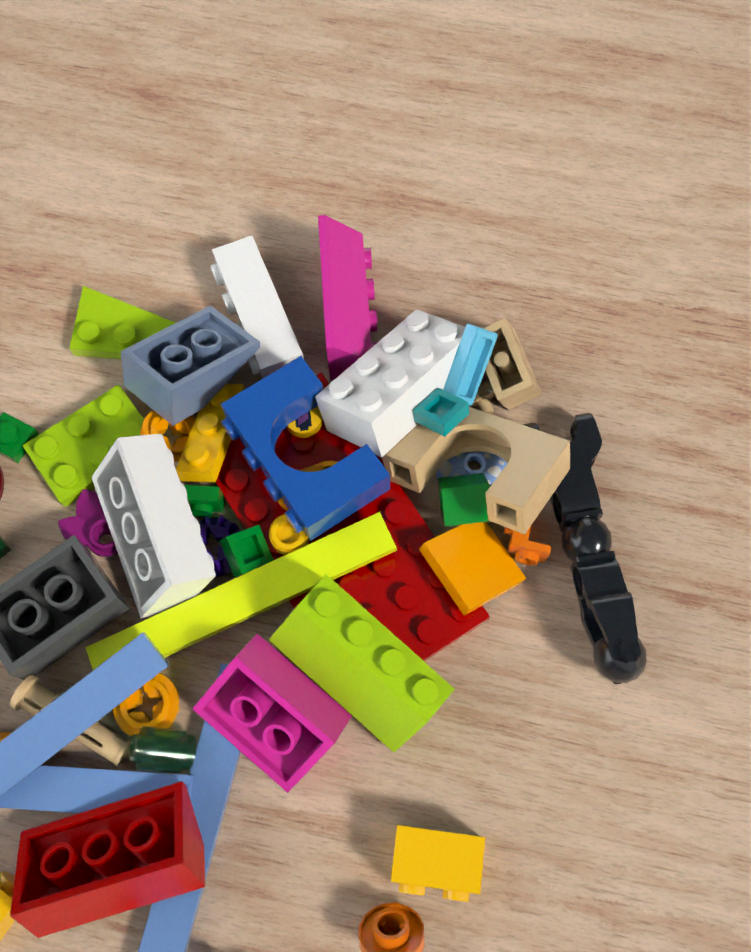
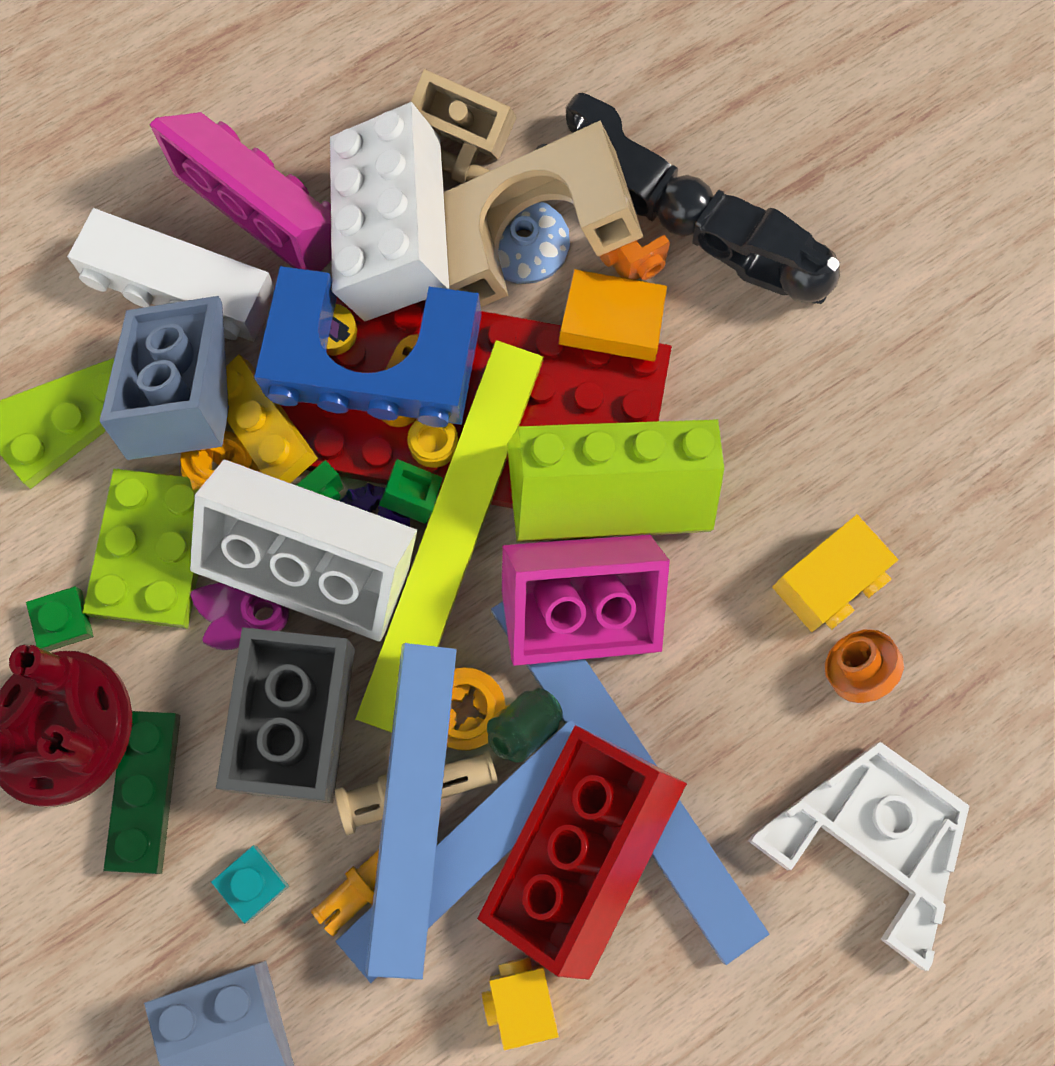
camera: 50 degrees left, 5 degrees up
(441, 411) = (459, 201): teal plate -> none
(463, 499) = (550, 265): green brick -> none
(470, 362) = (436, 139): medium azure tile -> none

